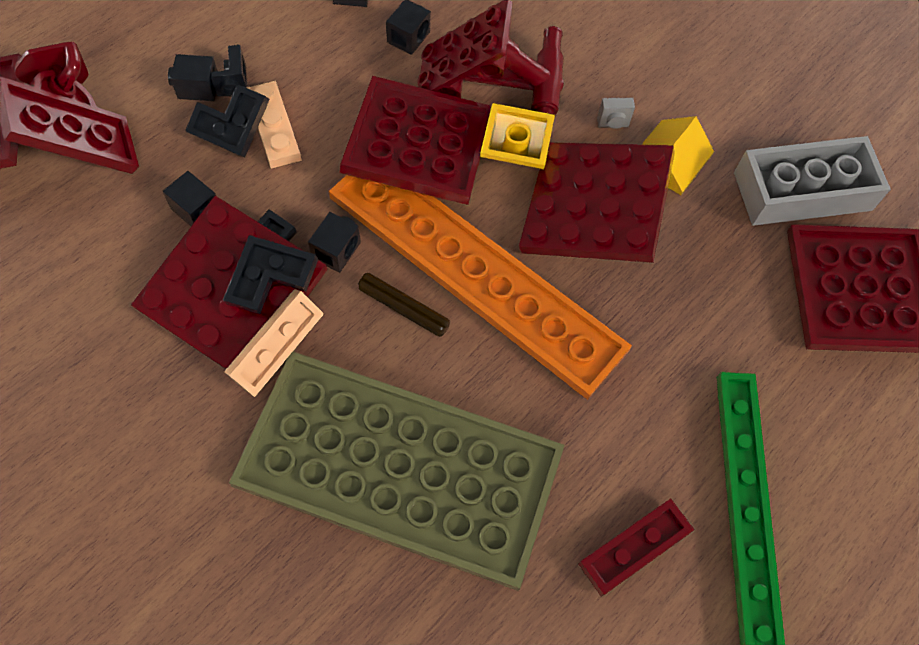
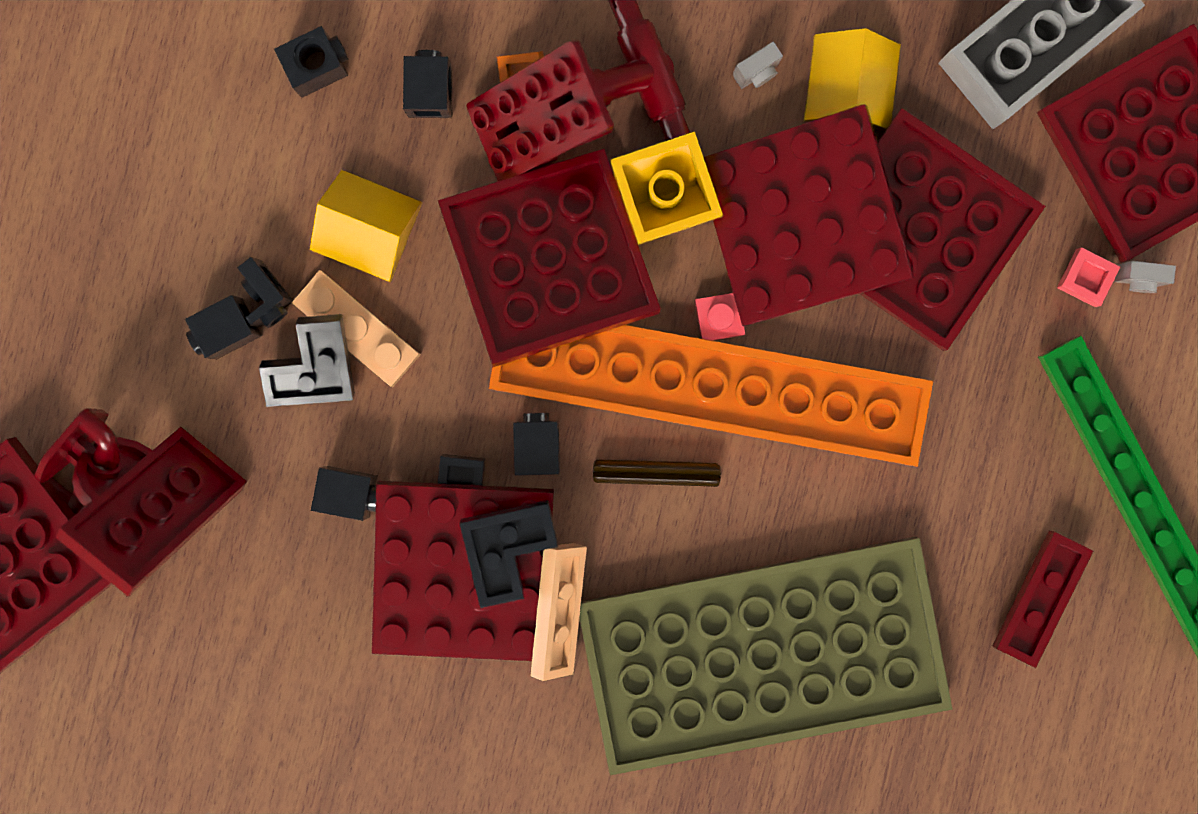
camera: 30 degrees left, 25 degrees up
(317, 74) = (363, 225): none -> yellow slope
(507, 234) = (718, 317): none -> coral plate
(694, 265) = (956, 226): none -> dark red plate
(778, 343) = (1088, 277): none -> coral plate
(821, 360) = (1145, 276): none -> light grey plate

